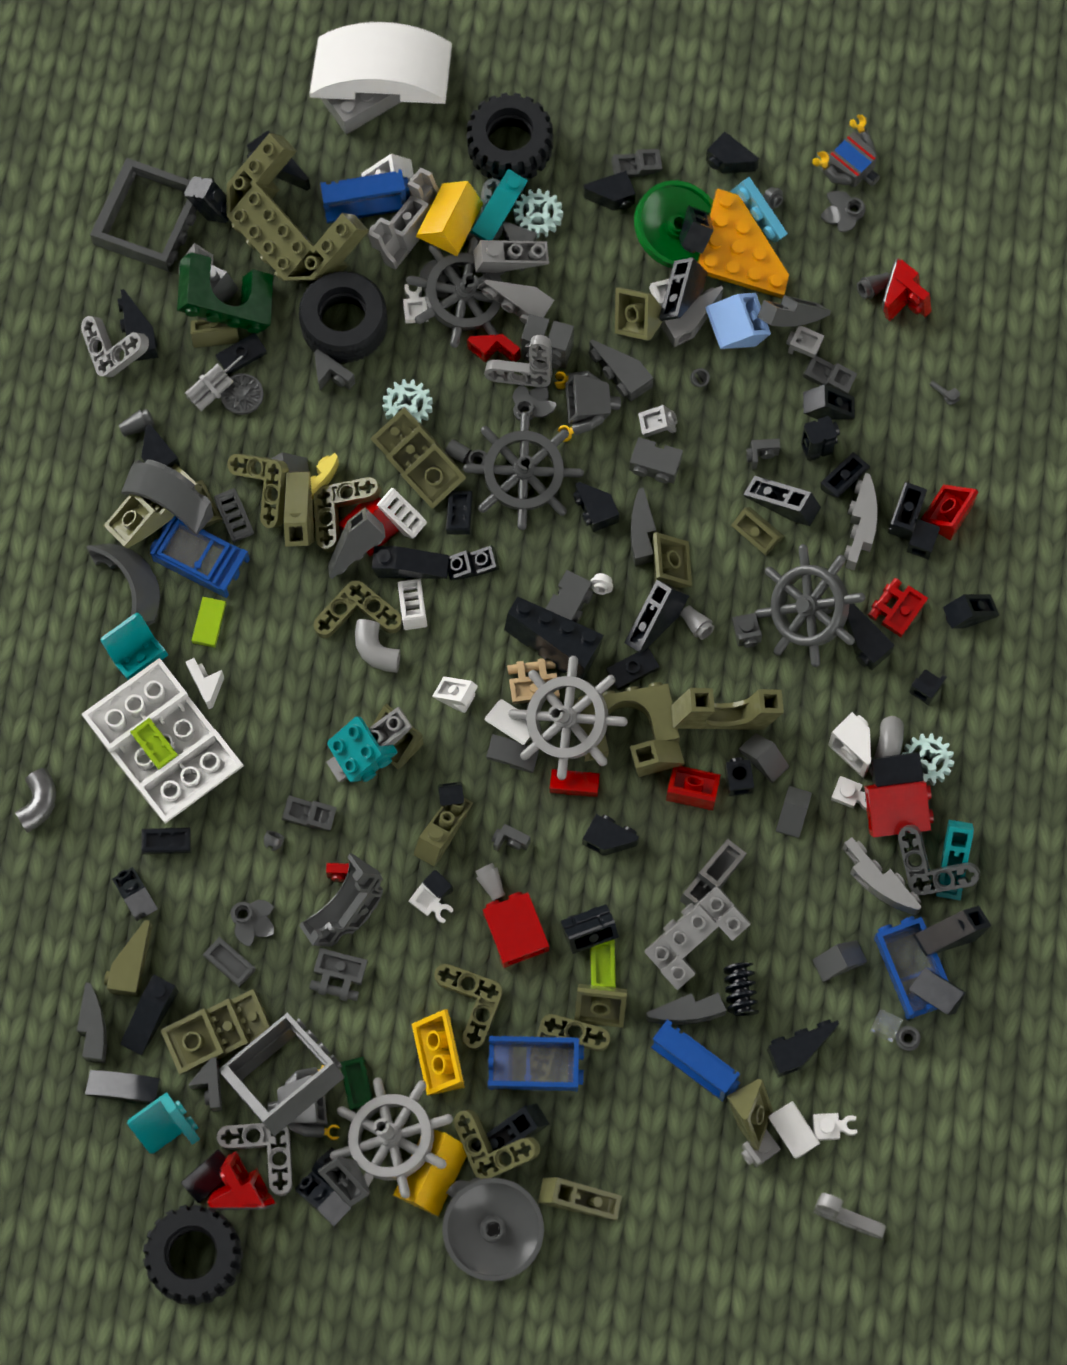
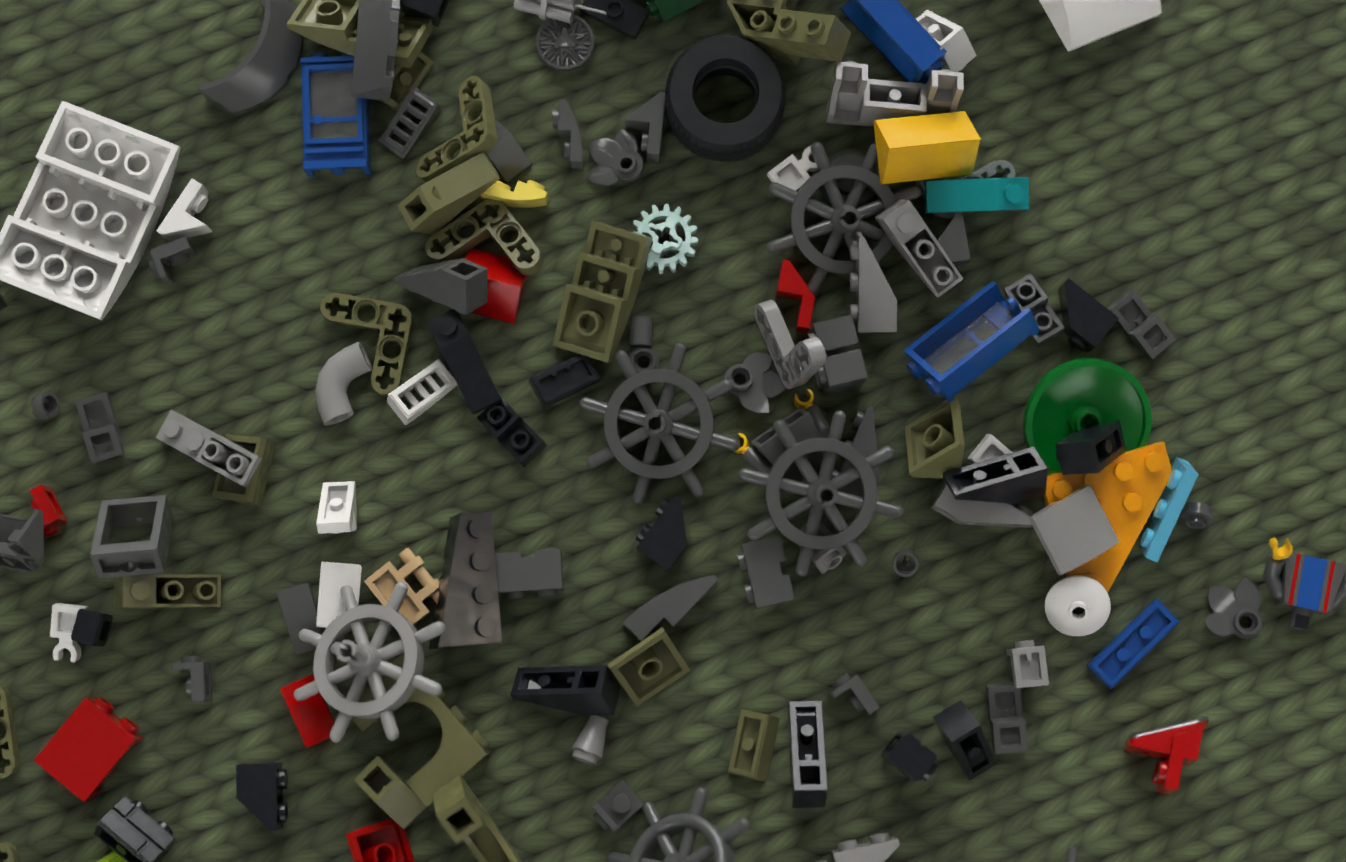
camera: 55 degrees right, 10 degrees up
(132, 646) = (178, 110): teal bracket -> none
(153, 743) = (69, 203): lime plate -> none
(209, 622) = (265, 174): lime tile -> none
(225, 703) = (173, 253): none -> dark grey bracket
(299, 420) = (568, 129): none -> dark grey slope
(335, 408) = (612, 156): none -> dark grey plate
(359, 751) = (189, 440): teal bracket -> none
(405, 837) = (149, 555): none -> dark grey window
(414, 521) = (514, 333): white slope -> none
(451, 793) = (213, 575): black slope -> none
(490, 880) = (133, 684): light grey cone -> none
(509, 112) = (1097, 121): black tyre -> none
(535, 205) = (1013, 250): light aqua gear -> none
(587, 262) = (969, 341): none -> blue door
(589, 219) = (1030, 295): none -> dark grey slope
(602, 584) = (572, 599): white plate -> none
(627, 395) = (821, 493): none -> dark grey piece
(633, 668) = (489, 697): black plate -> none
(731, 156) = (1220, 431): black slope -> none
(737, 322) = (1003, 568): light blue slope -> none
(739, 266) = (1074, 530): none -> light grey slope
(781, 284) = (1077, 592): none -> white dish
(792, 312) = (1055, 628): dark grey slope -> none
(828, 278) = (1133, 643): none -> blue tile
(844, 475) = (882, 813): black slope -> none
(872, 285) = (1156, 704): dark grey cone -> none

